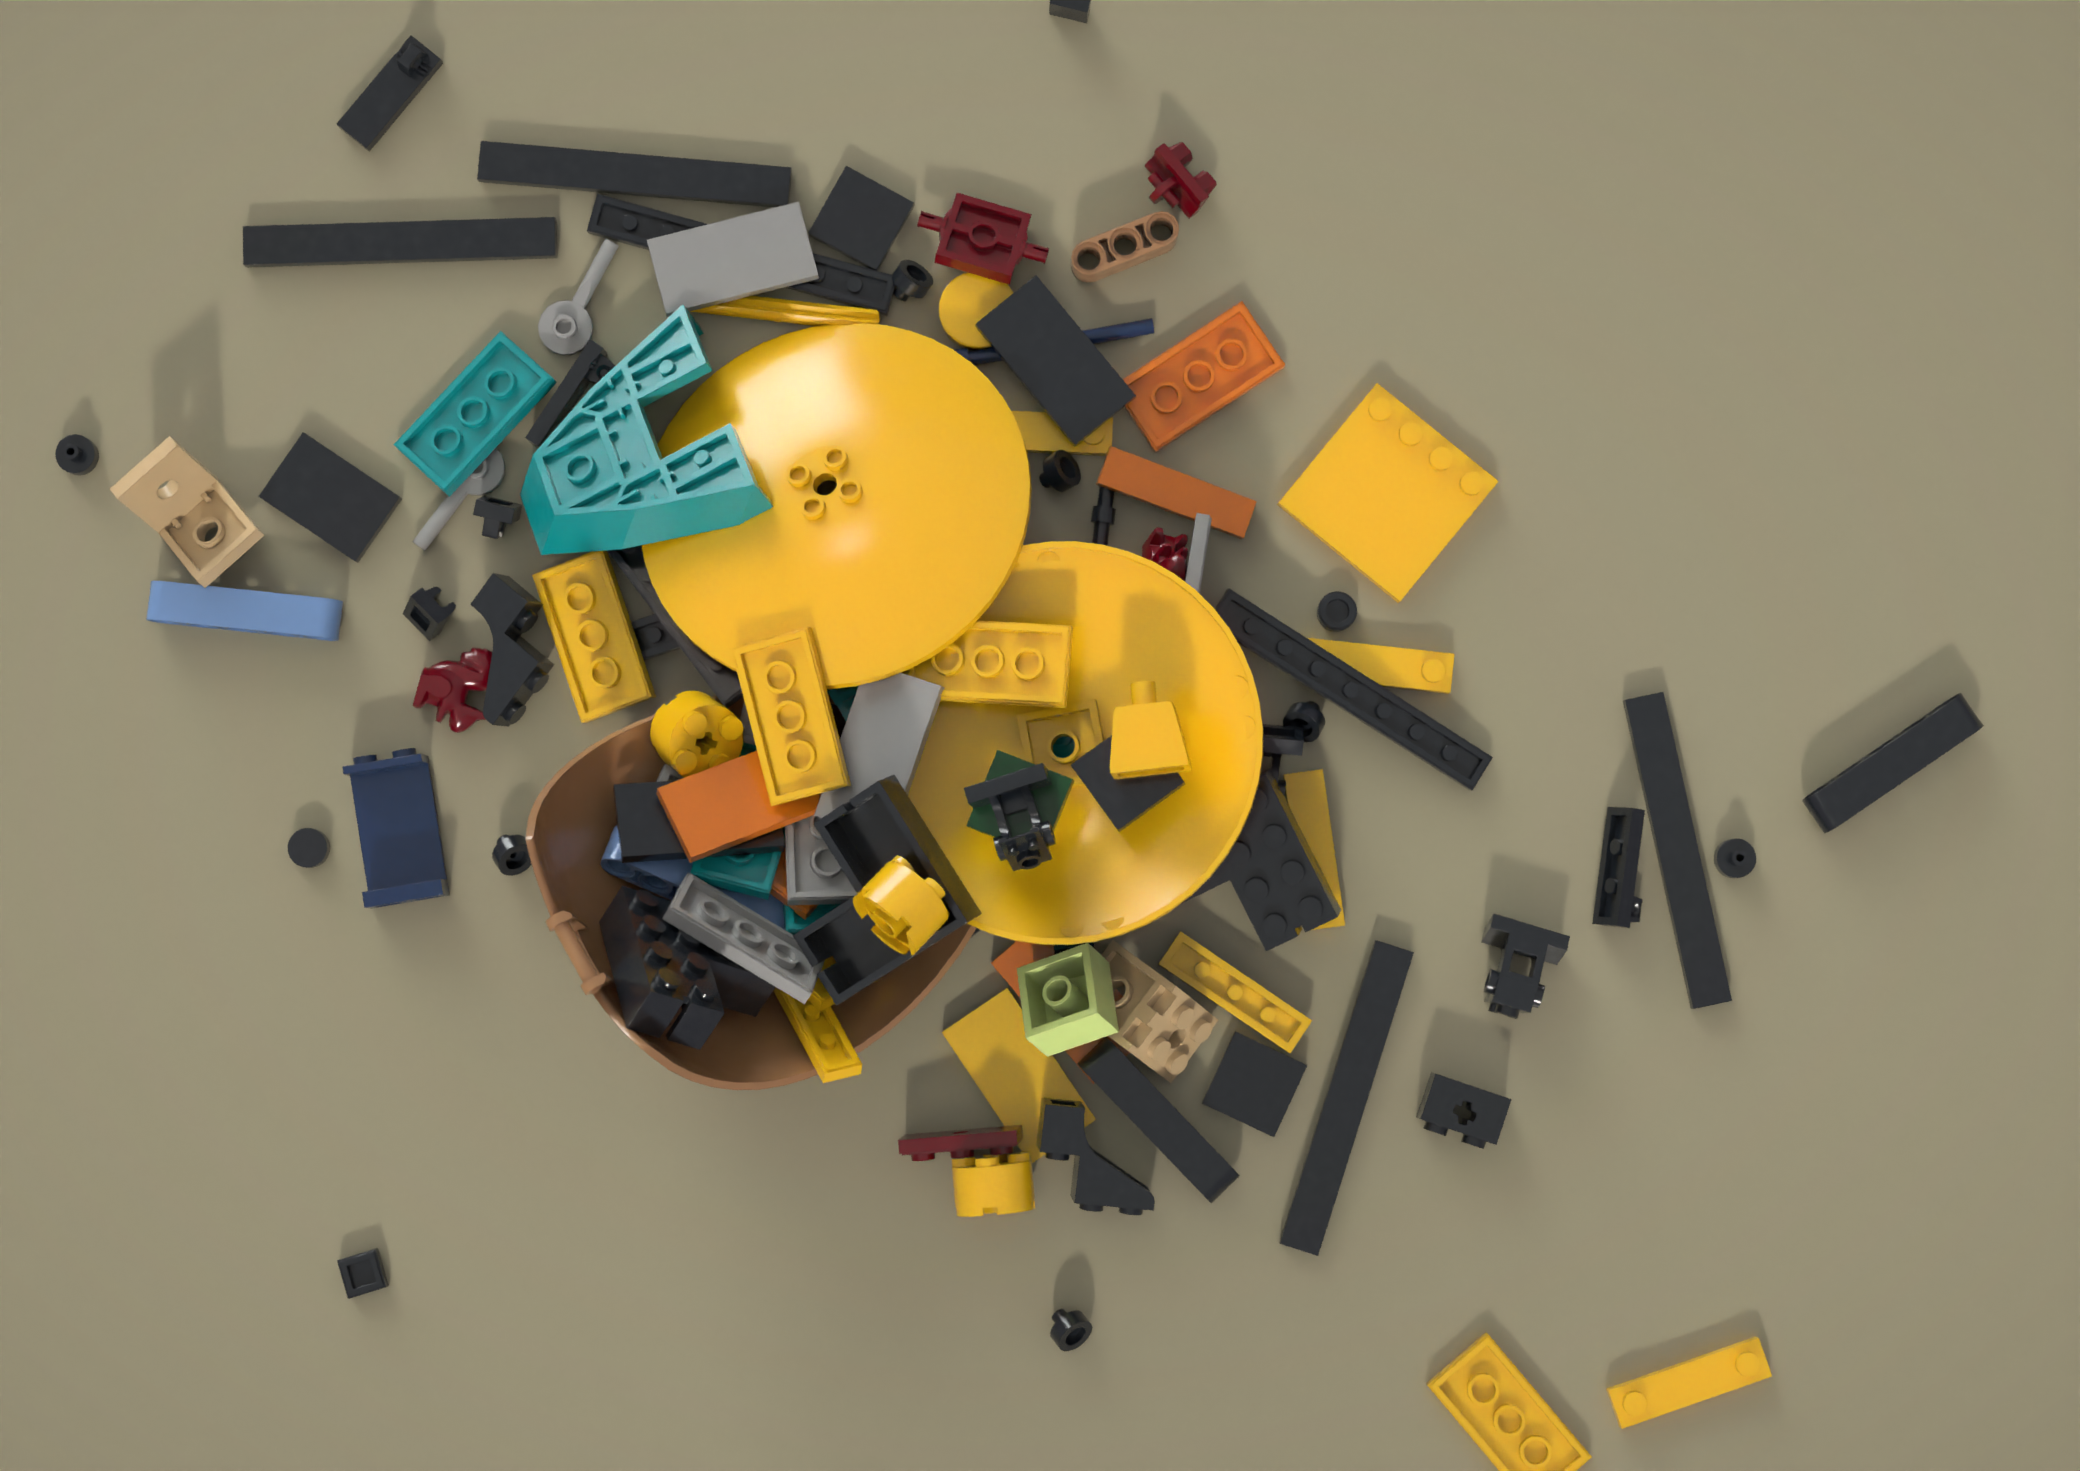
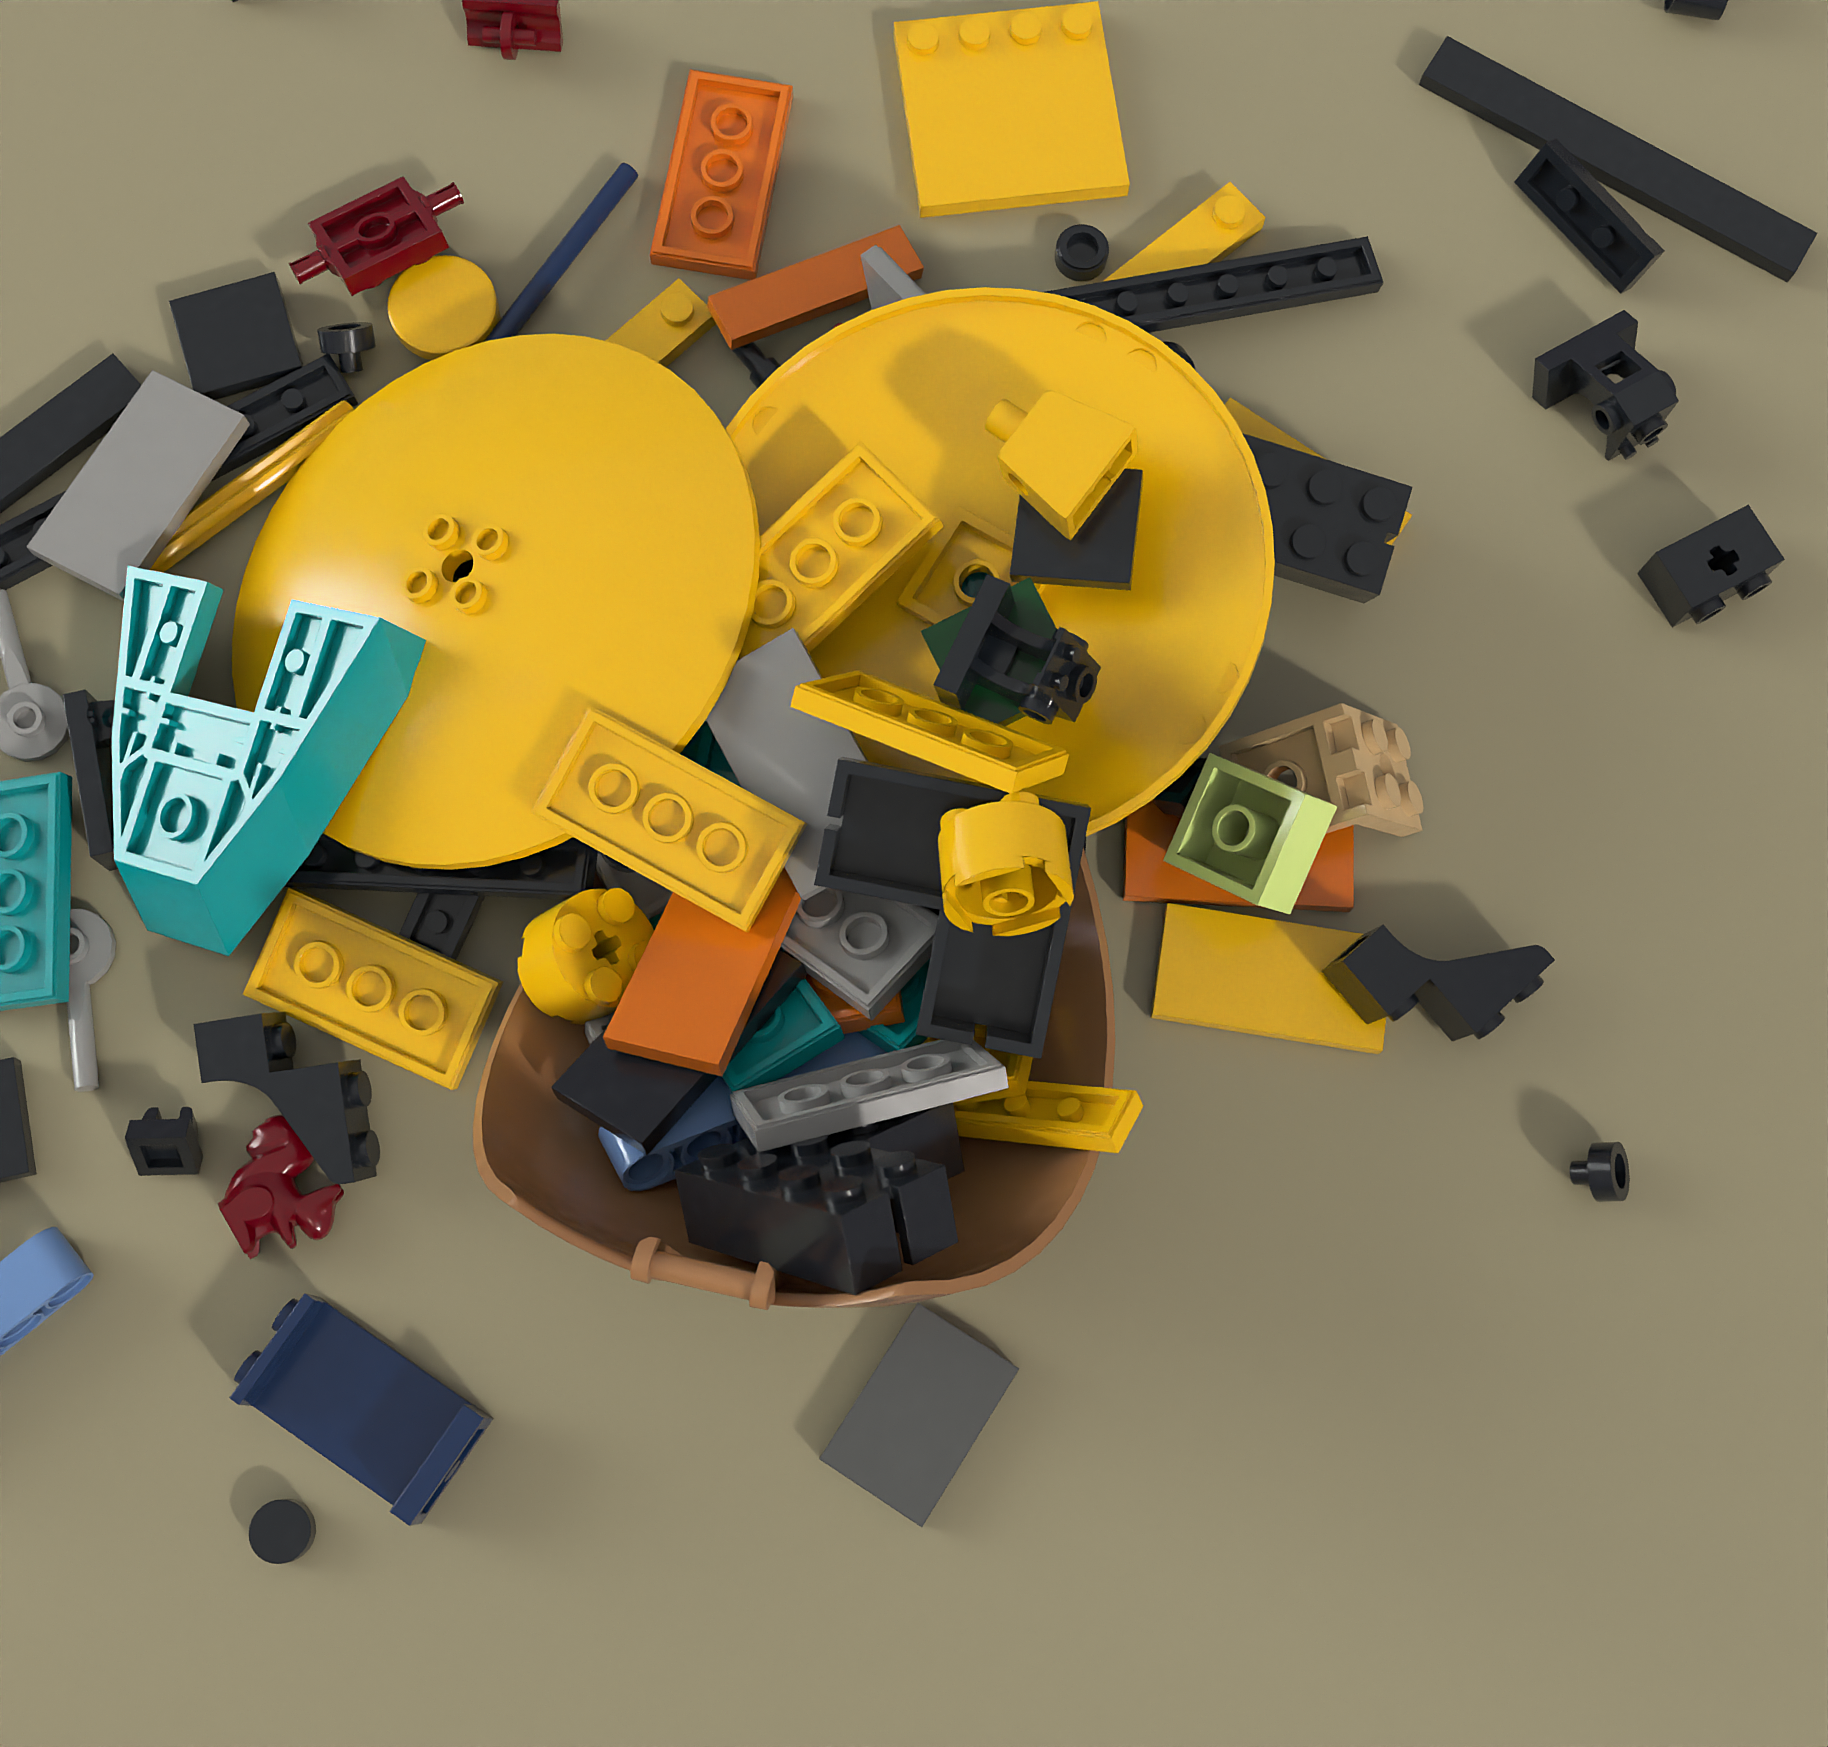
camera: 50 degrees left, 10 degrees down
(496, 515) = (140, 970): black tile -> none
(511, 855) = (518, 1299): black tile -> none
(634, 1101) = (919, 1414): none -> dark grey tile
(940, 807) = (931, 730): none -> yellow tile
(960, 1142) = (1296, 1098): dark red tile -> none
(993, 1184) = (1376, 1103): yellow brick -> none
(1055, 360) = (569, 274): black tile -> none
(1060, 471) = (690, 369): black tile -> none
(1137, 232) = (526, 99): medium nougat beam -> none
(1158, 1119) = (1455, 871): black beam -> none
(1235, 992) = (1389, 677): yellow plate -> none
(1254, 1084) = (1498, 749): black tile -> none
(1346, 1098) = (1596, 676): black tile -> none
(1726, 861) = (1671, 116): black tile -> none

